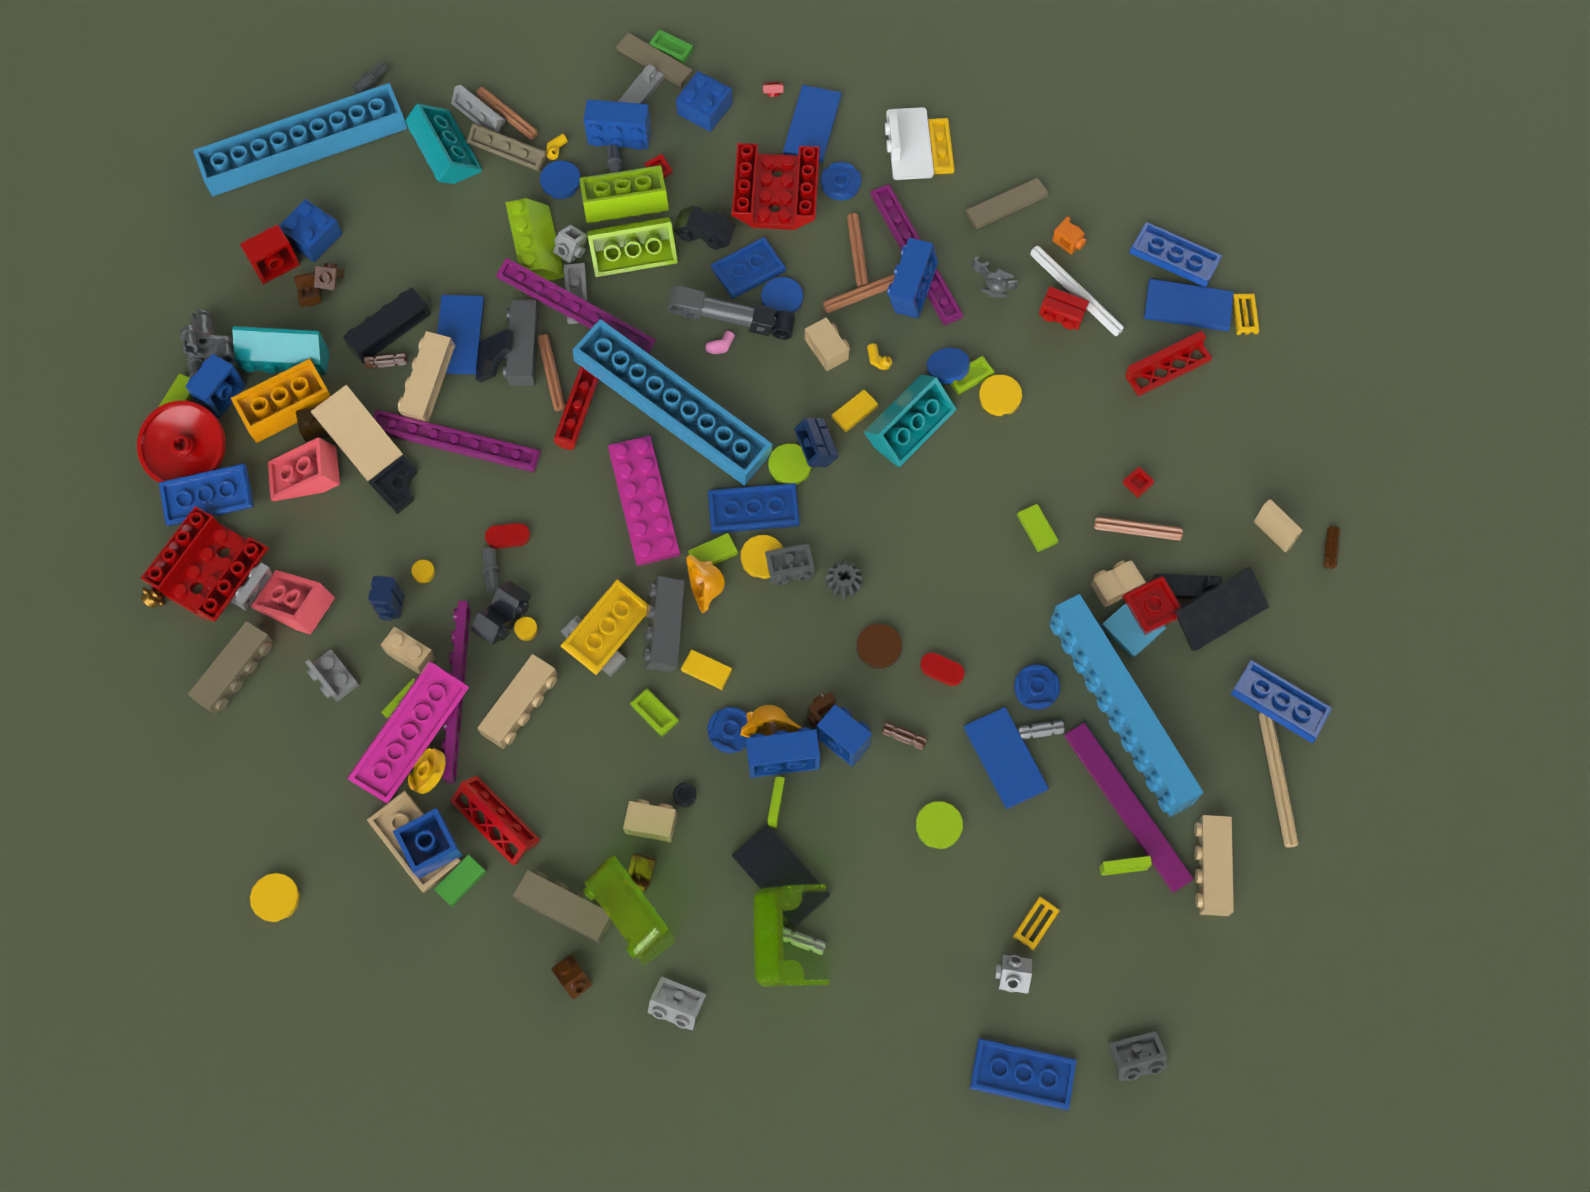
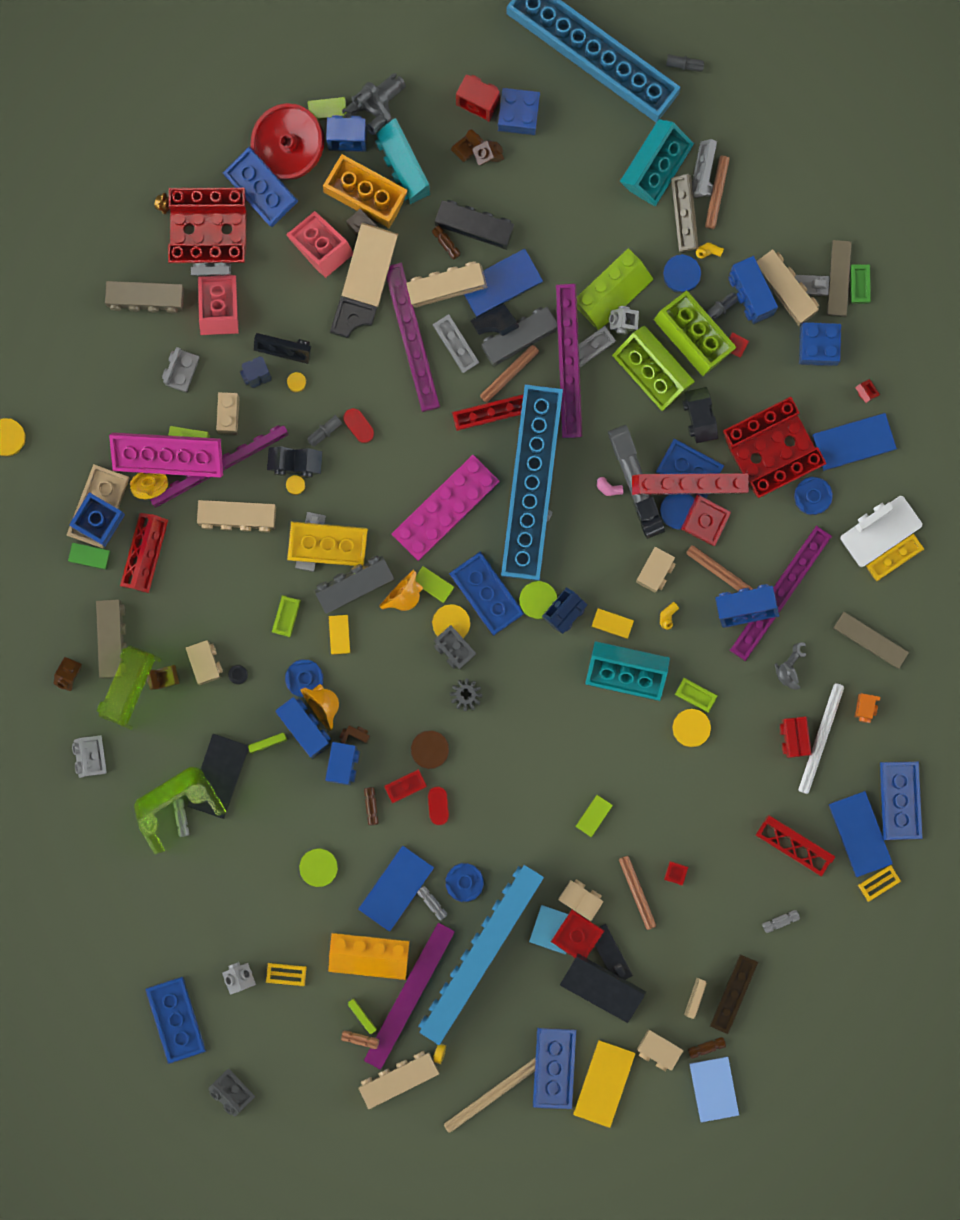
camera: 60 degrees right, 15 degrees up
(380, 562) = (283, 348): none -> black hinge
(488, 401) = (455, 343): none -> light grey hinge
(656, 93) = (786, 287): none -> tan brick
(764, 265) = (689, 484): none -> red brick
(806, 277) = (705, 520): none -> red tile
(857, 249) = (756, 545): nougat axle -> none
(903, 689) = (405, 786): none -> red plate
(948, 365) = (691, 674): blue tile -> none
(1063, 823) = (368, 956): none -> light orange slope
(1150, 881) = (360, 1039): none -> nougat axle
(1206, 806) = (439, 1053): none -> yellow tile
(1237, 415) = (781, 921): none -> light grey axle
(1289, 493) = (733, 994): none -> dark brown plate
(1313, 590) = (659, 1050): none -> tan brick
(1320, 663) = (604, 1083): none -> yellow tile
(1378, 563) = (714, 1089): none -> light blue tile

